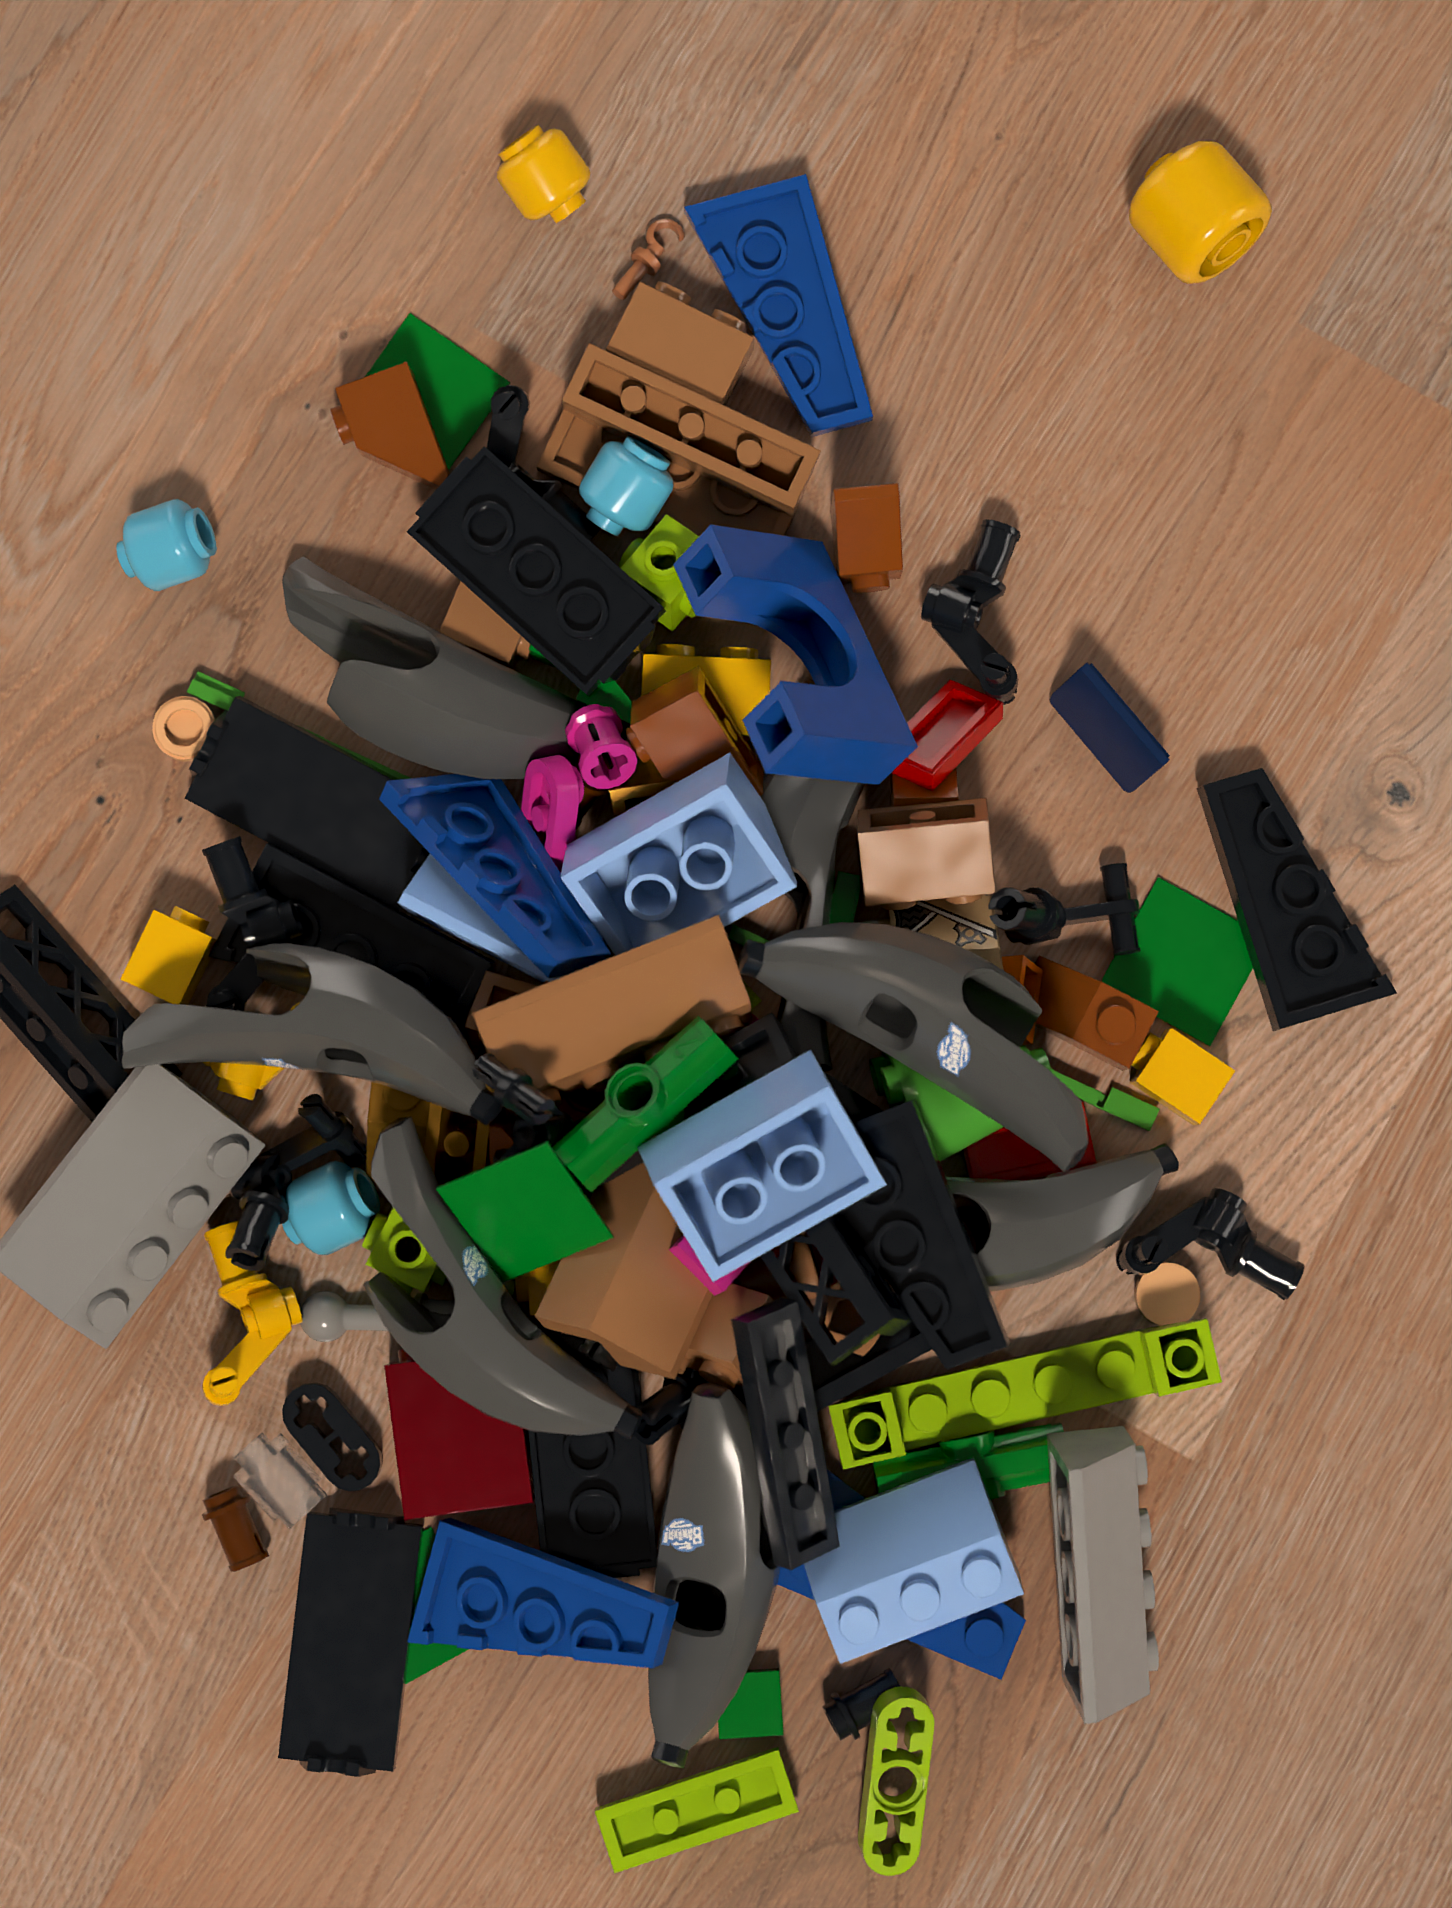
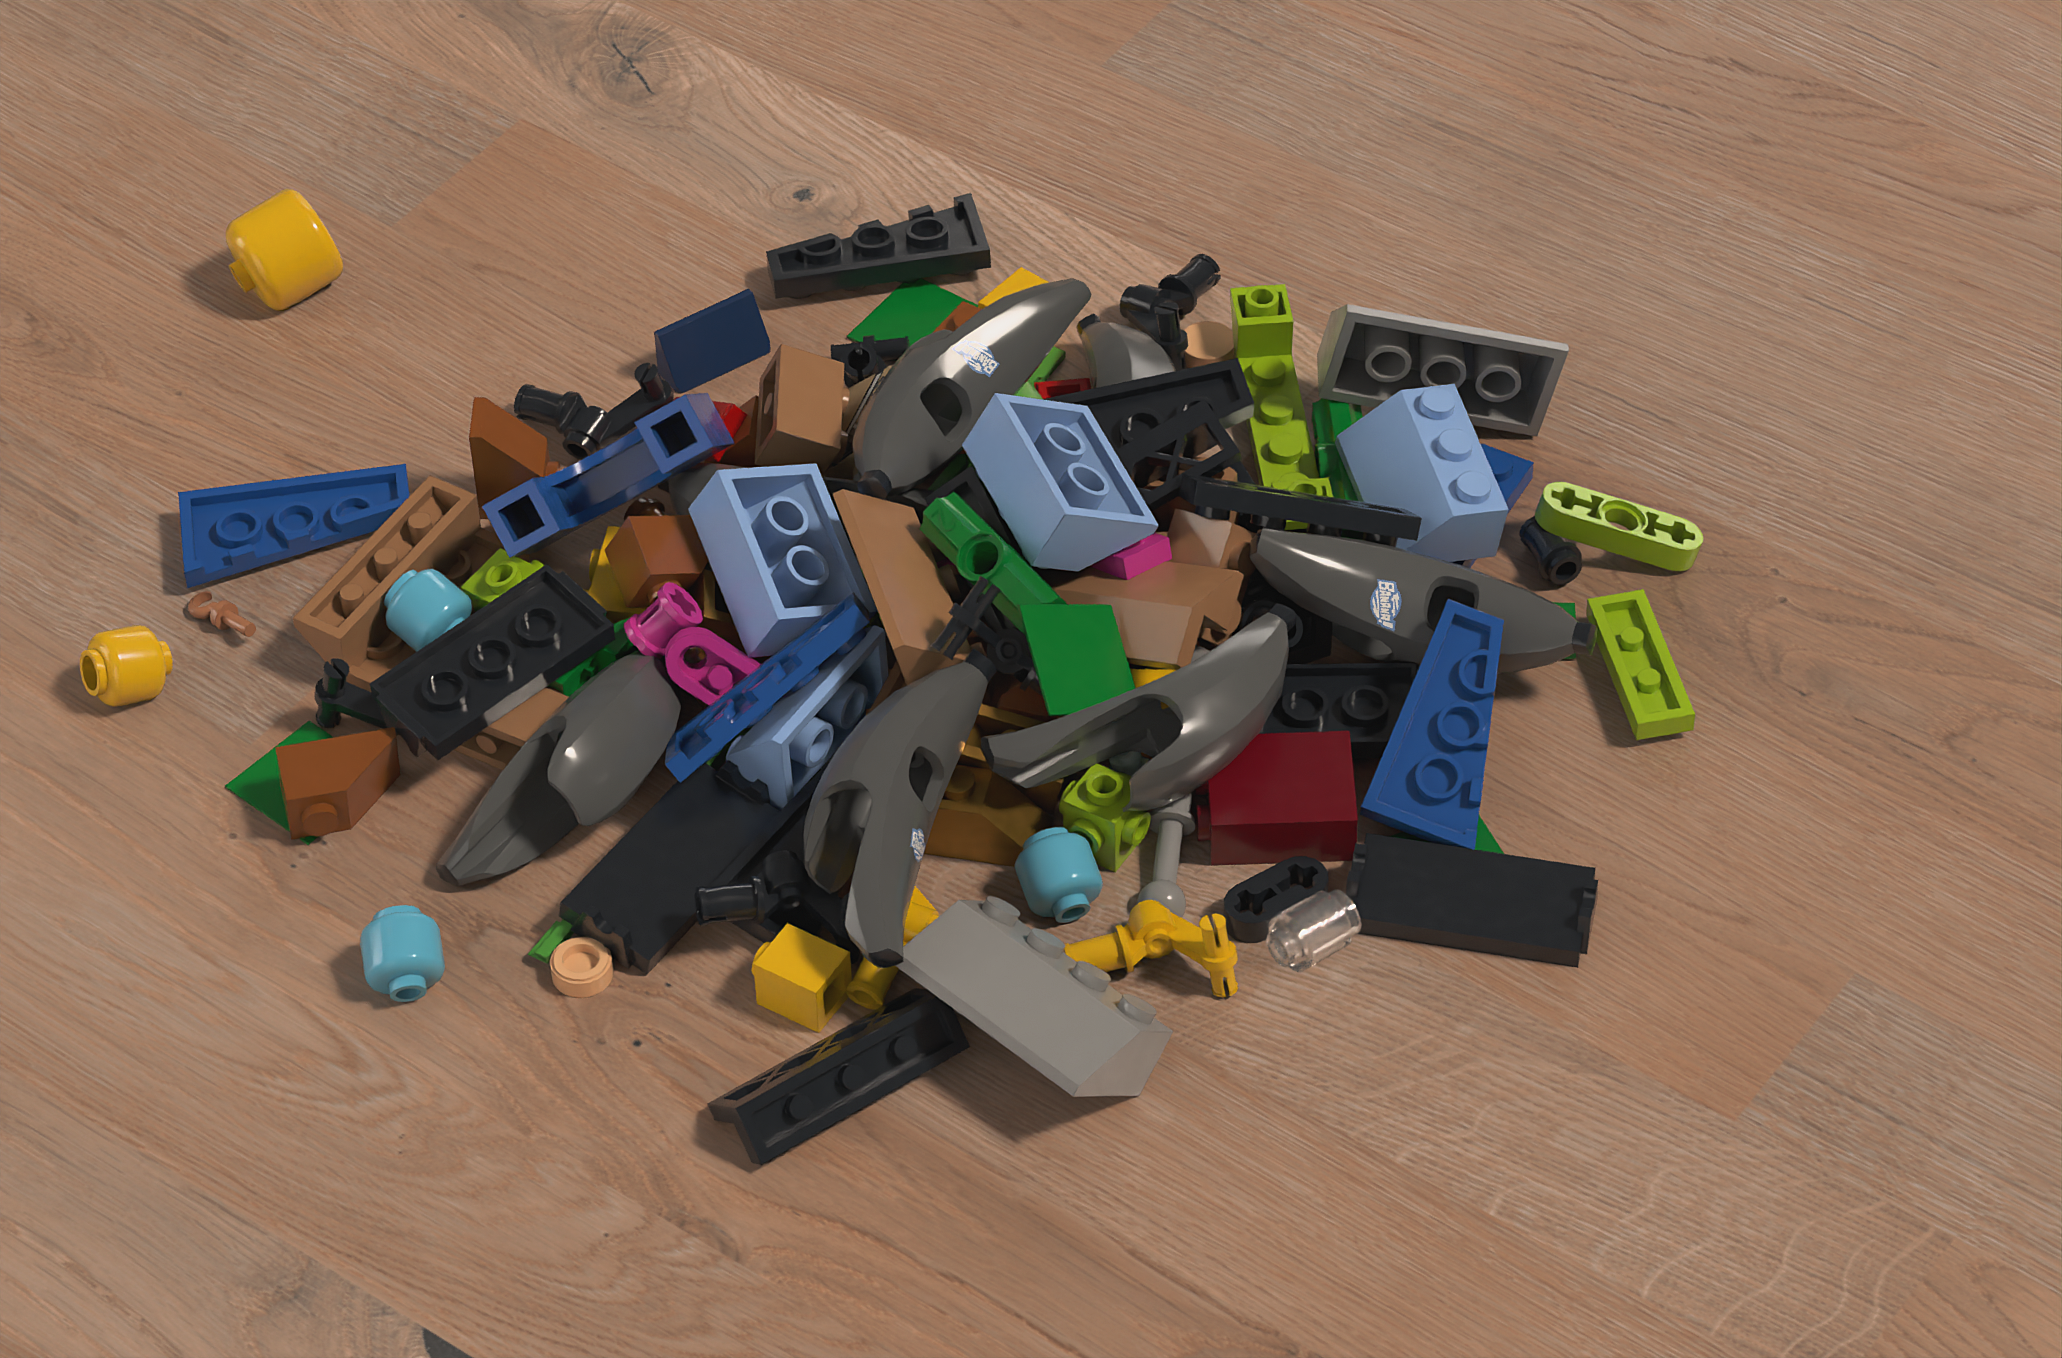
camera: 80 degrees left, 40 degrees down
(235, 1527) = (1356, 971): reddish brown pin -> none
(266, 1179) = (1051, 904): black pin -> none
(682, 342) = (295, 578): medium nougat brick -> none

